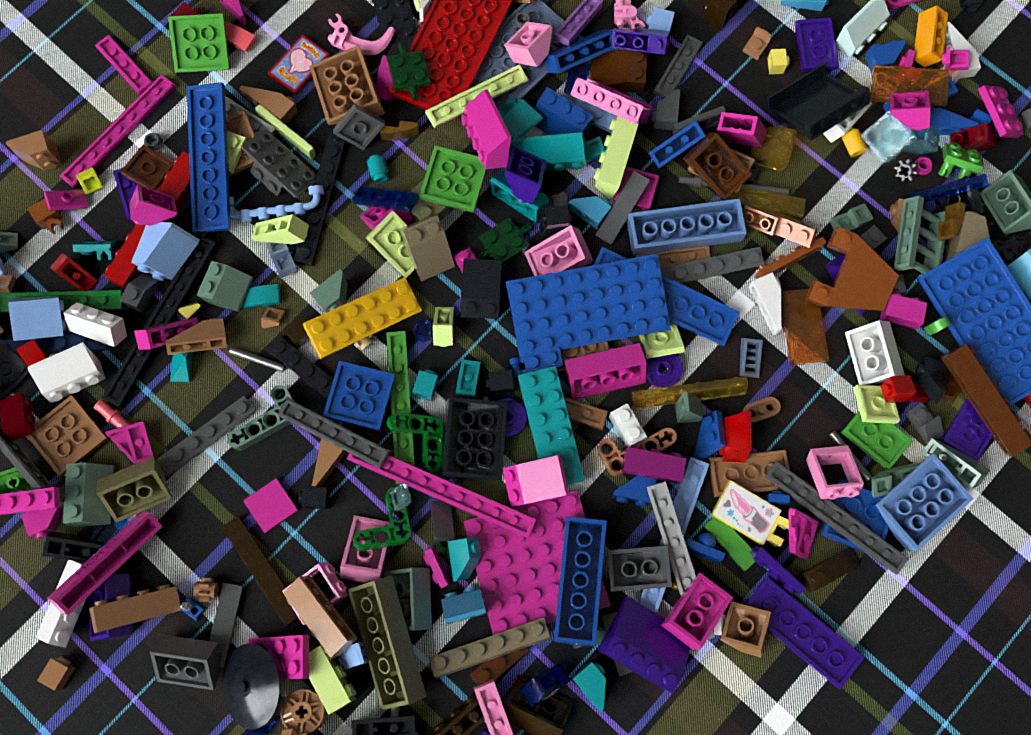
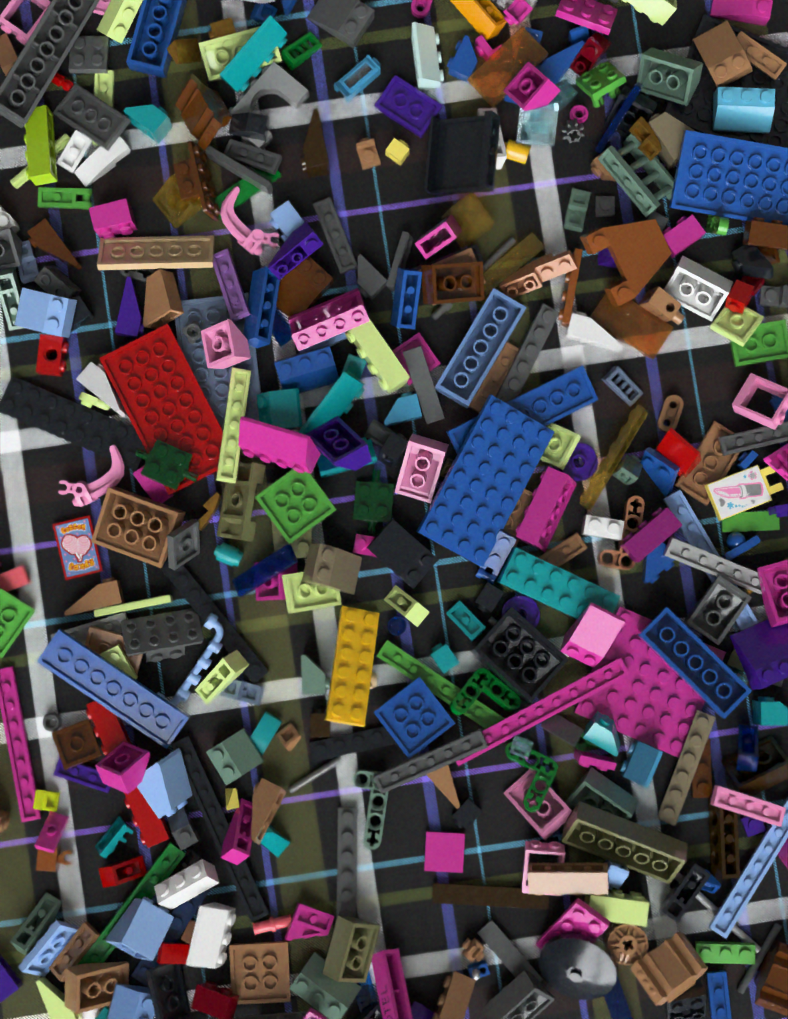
camera: 55 degrees left, 10 degrees up
(404, 152) = (236, 518): none -> olive piece
(838, 336) = (662, 305): none -> medium nougat torso
(862, 470) = (766, 375): flat silver bar -> none

